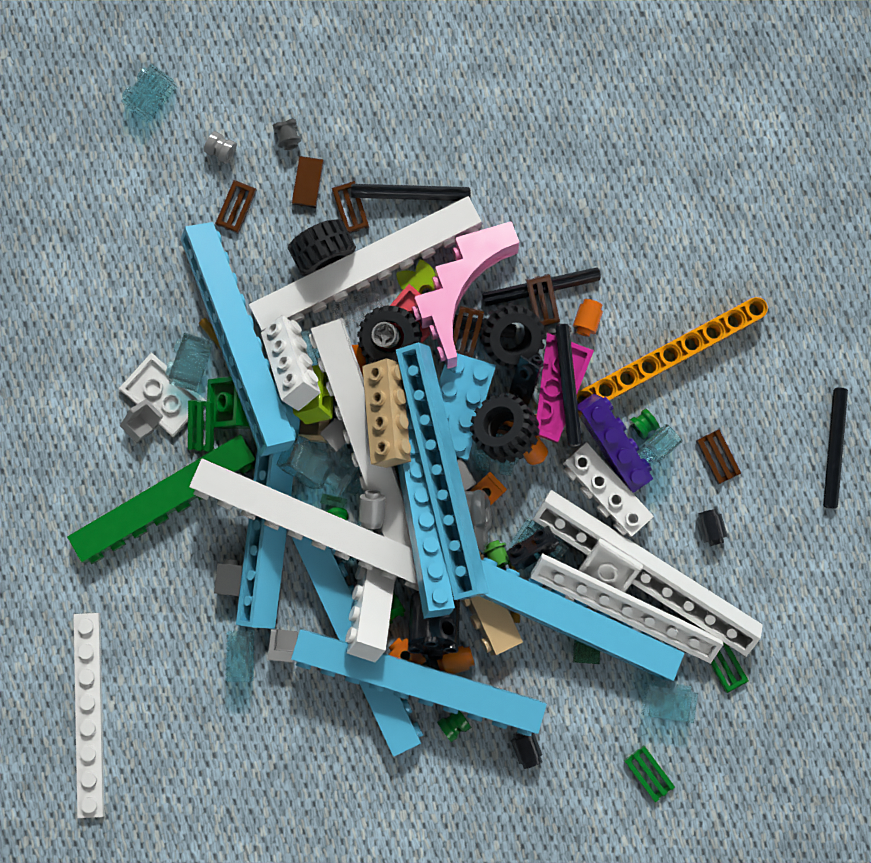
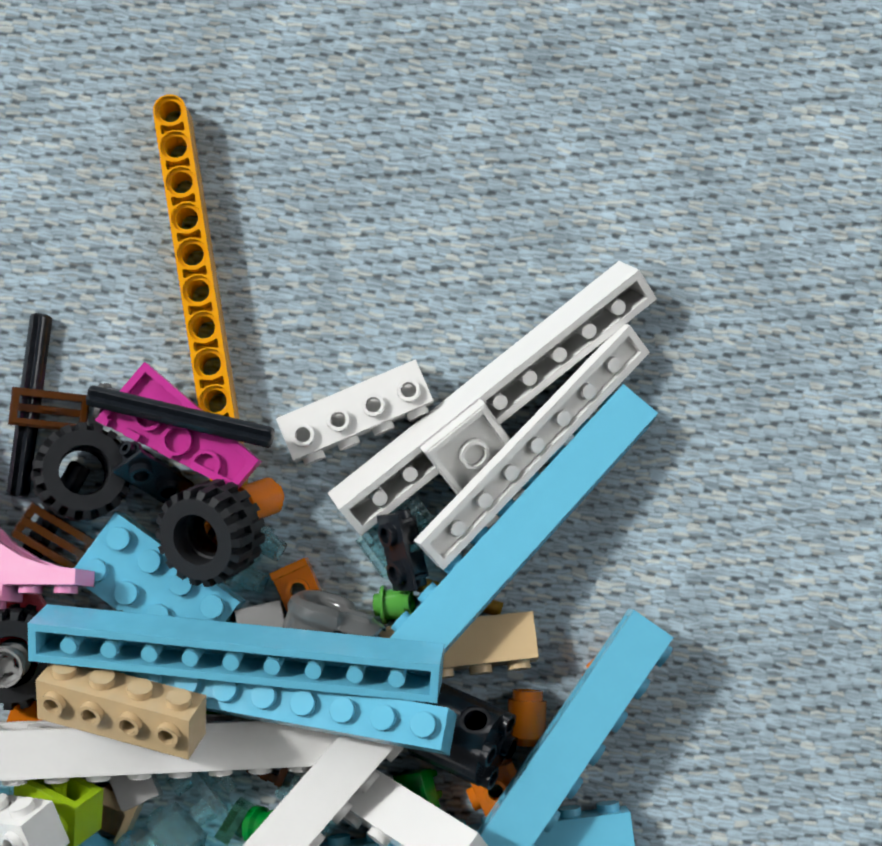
camera: 70 degrees left, 0 degrees up
(371, 509) = (261, 775): light grey brick -> none
(454, 725) = (619, 752): green wheel -> none
(527, 750) = (690, 656): black brick -> none
(585, 654) = (579, 524): clear green plate -> none
(588, 317) = (98, 353): orange brick -> none
(613, 442) = (288, 379): dark purple brick -> none
(644, 423) = (279, 326): green wheel -> none
(659, 445) = (316, 315): clear light blue brick -> none
(662, 791) = (804, 482): green tile -> none
(669, 703) = (685, 429): clear light blue brick -> none
(712, 527) = (459, 282): black brick -> none
(735, 684) = (666, 316): green tile -> none
(736, 471) = (358, 225): reddish brown tile -> none
(835, 448) = (407, 74): black axle -> none

